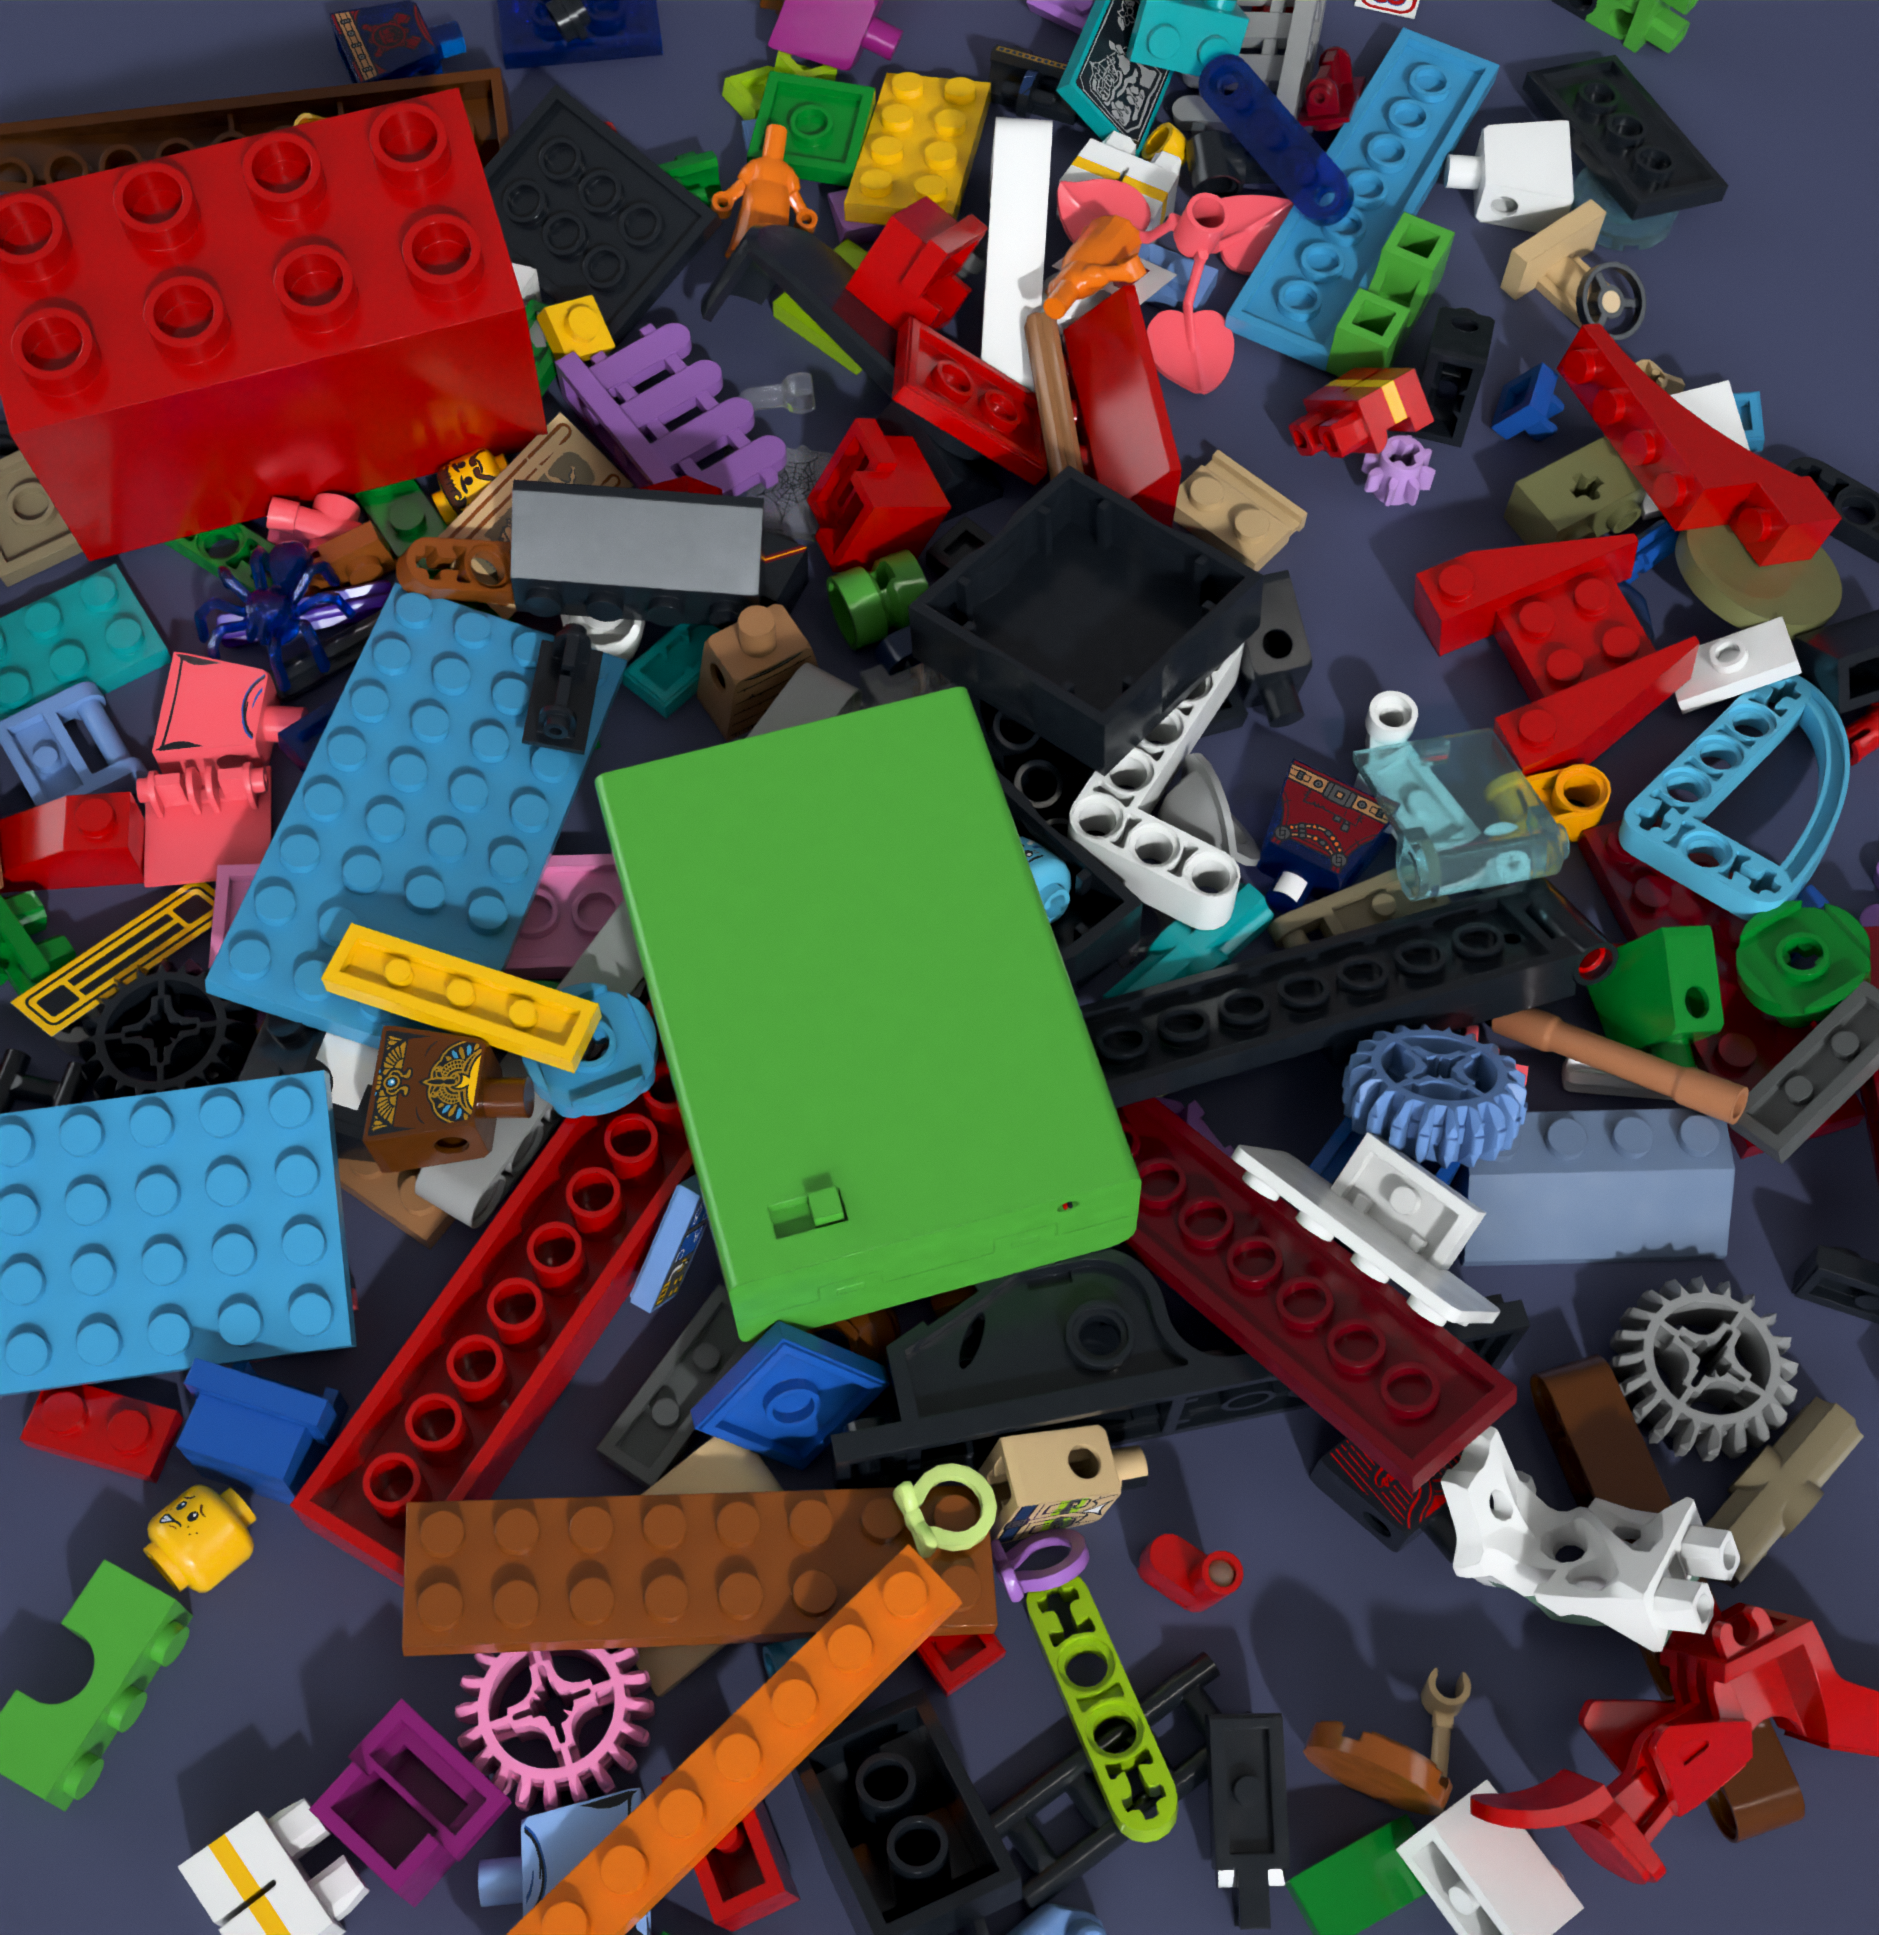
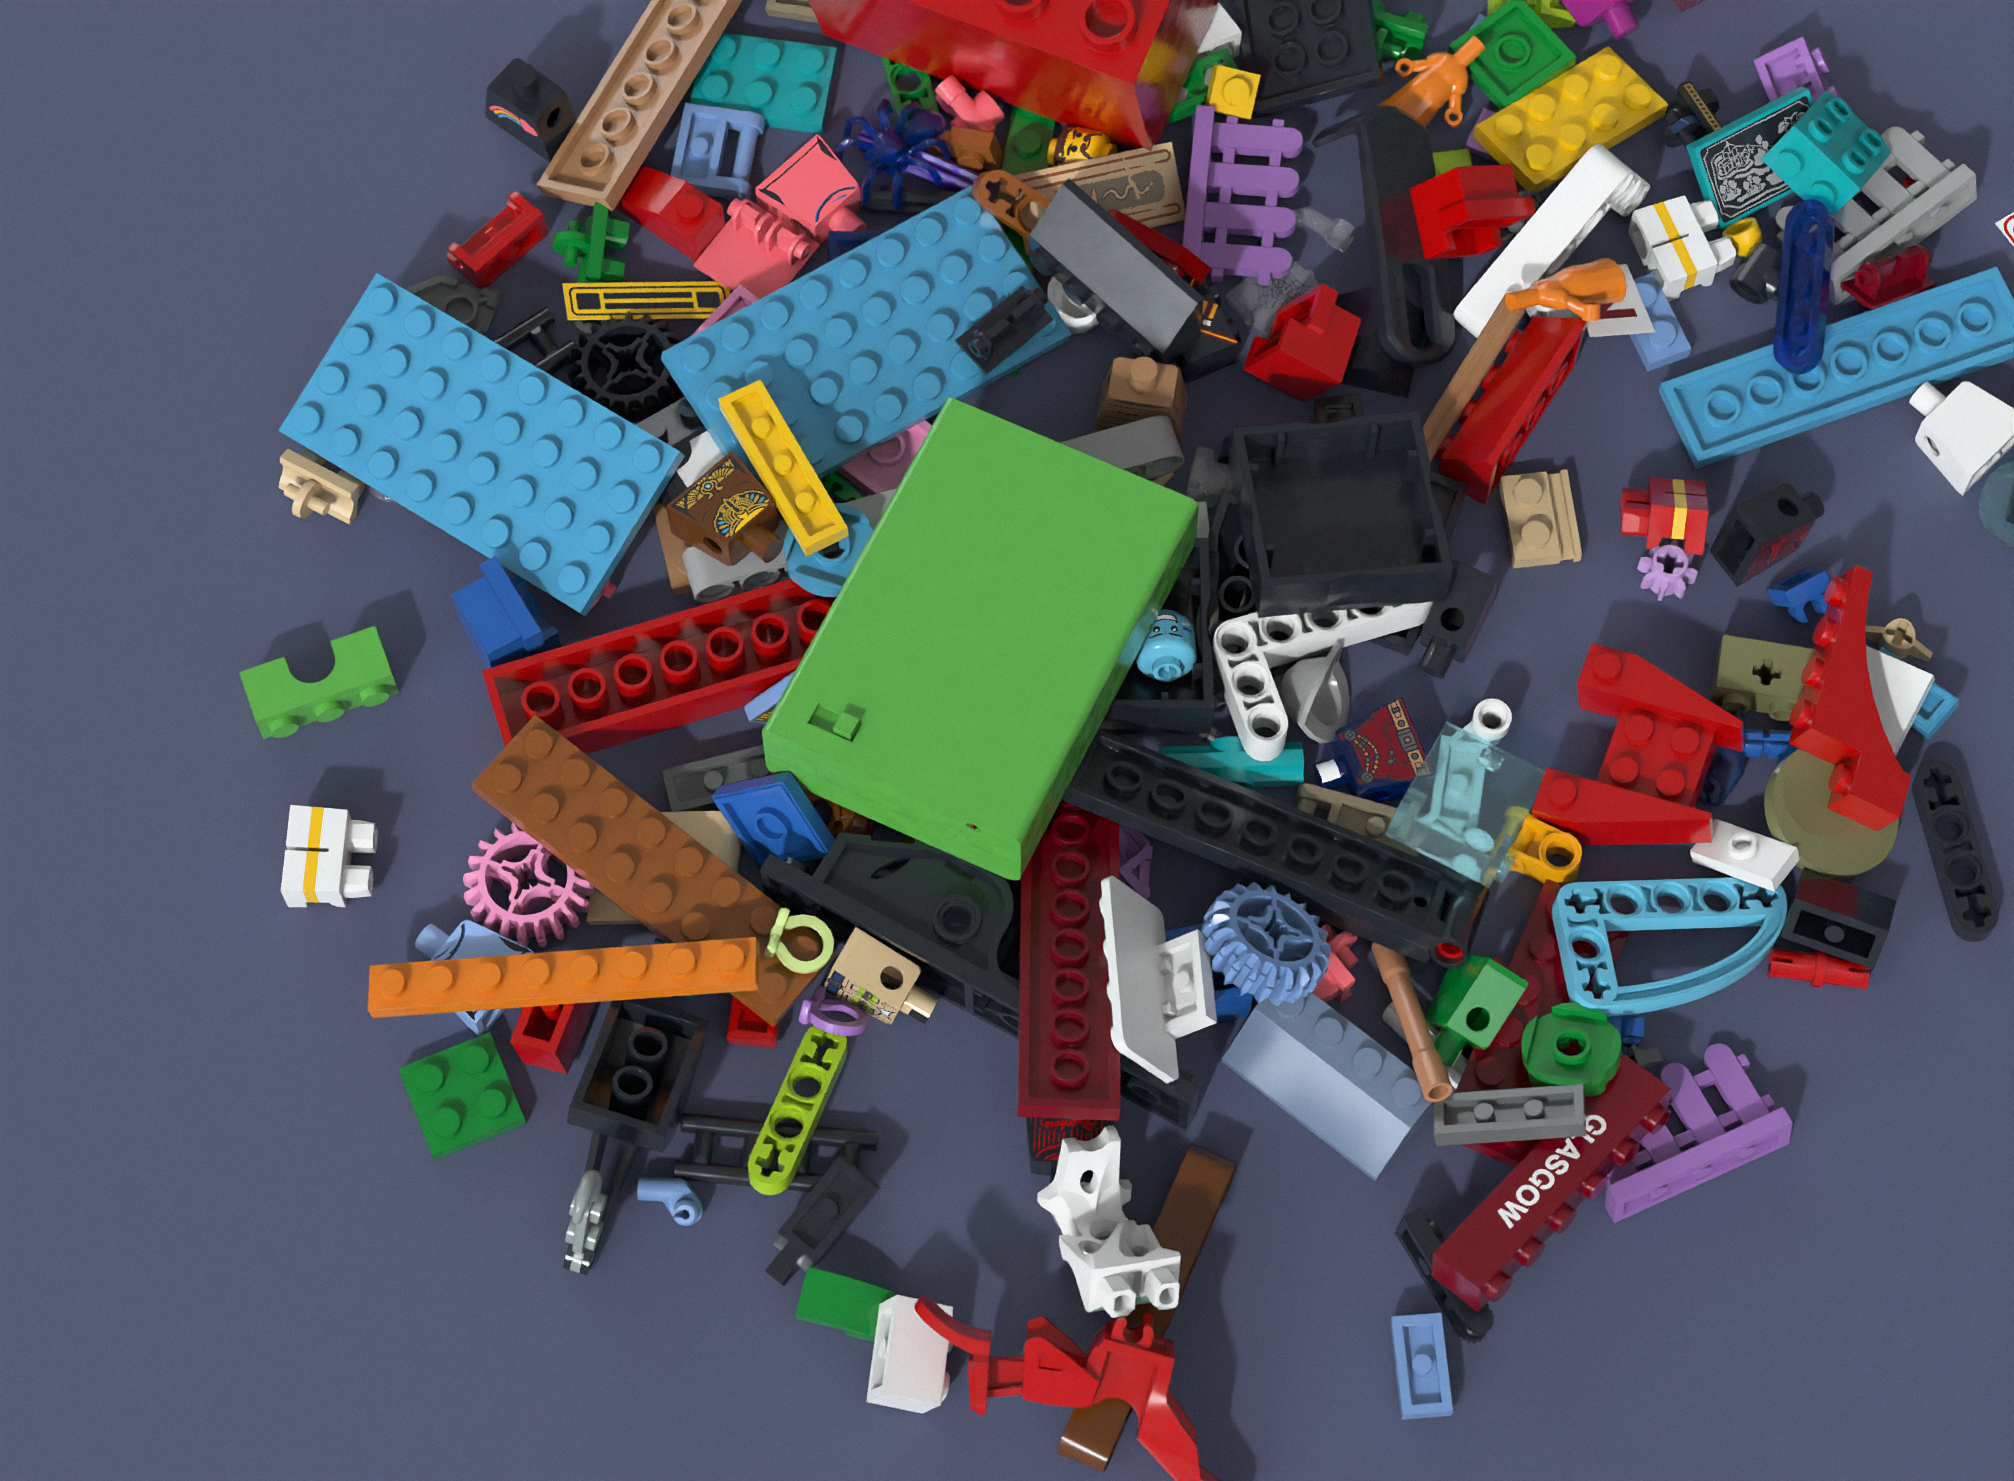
camera: 45 degrees right, 5 degrees up
(103, 1430) = (430, 558): red plate -> none
(200, 1538) = (430, 654): yellow head -> none
(409, 1803) = (419, 868): magenta plate -> none
(670, 668) = (1091, 356): teal plate -> none
(875, 600) = (1253, 405): bright green wheel -> none
(969, 400) = (1421, 319): red tile -> none
(1186, 346) = (1625, 389): coral plant -> none
(1188, 1574) = (902, 1083): red piece -> none
(1379, 1768) = (901, 1251): dark orange tile -> none
(1402, 285) = (1803, 447): bright green arch -> none
(1443, 1713) = (971, 1269): tan hand -> none
(1555, 268) = (1929, 527): tan piece -> none
(1752, 1393) = (1269, 1225): light grey gear -> none
(1785, 1482) = (1264, 1313): dark tan piece -> none

